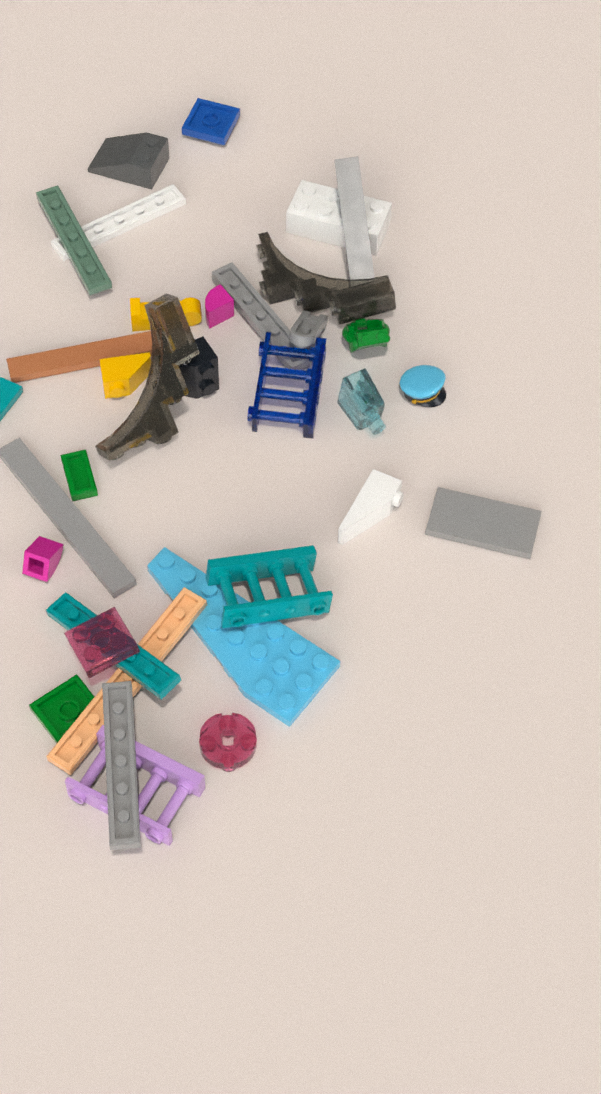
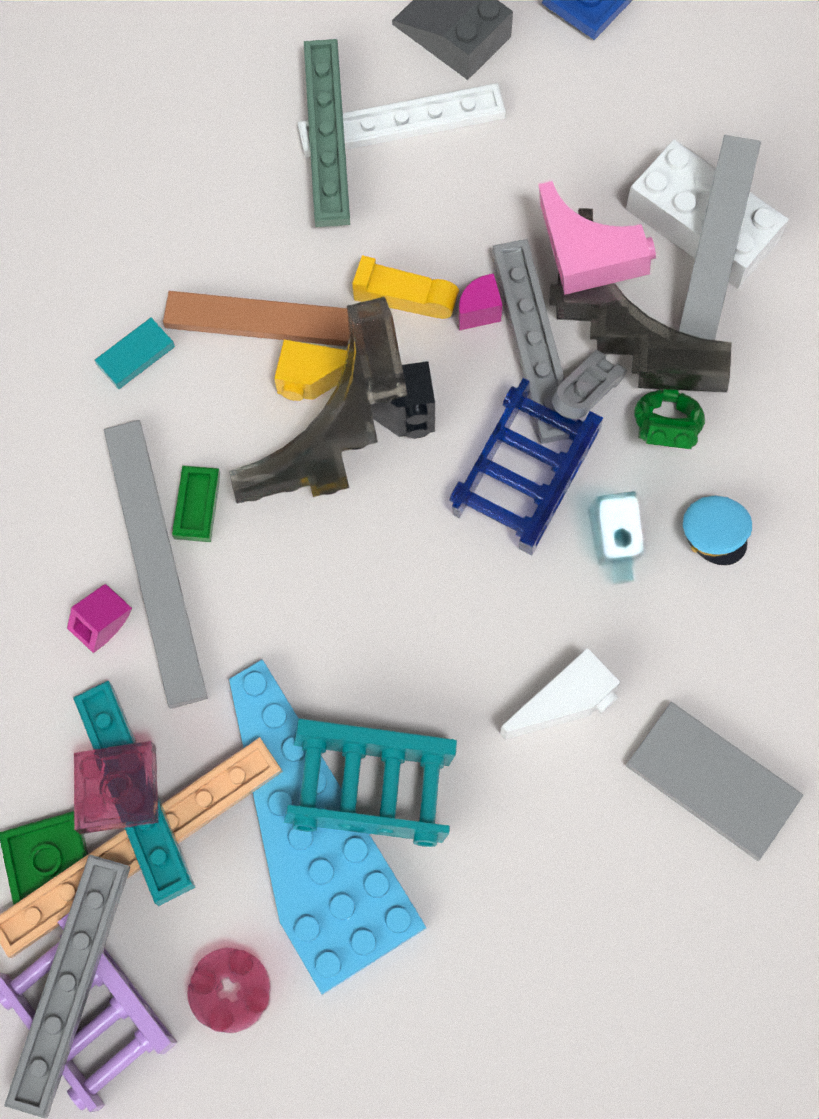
camera: 25 degrees right, 15 degrees up
(276, 252) = (589, 251): none -> bright pink arch

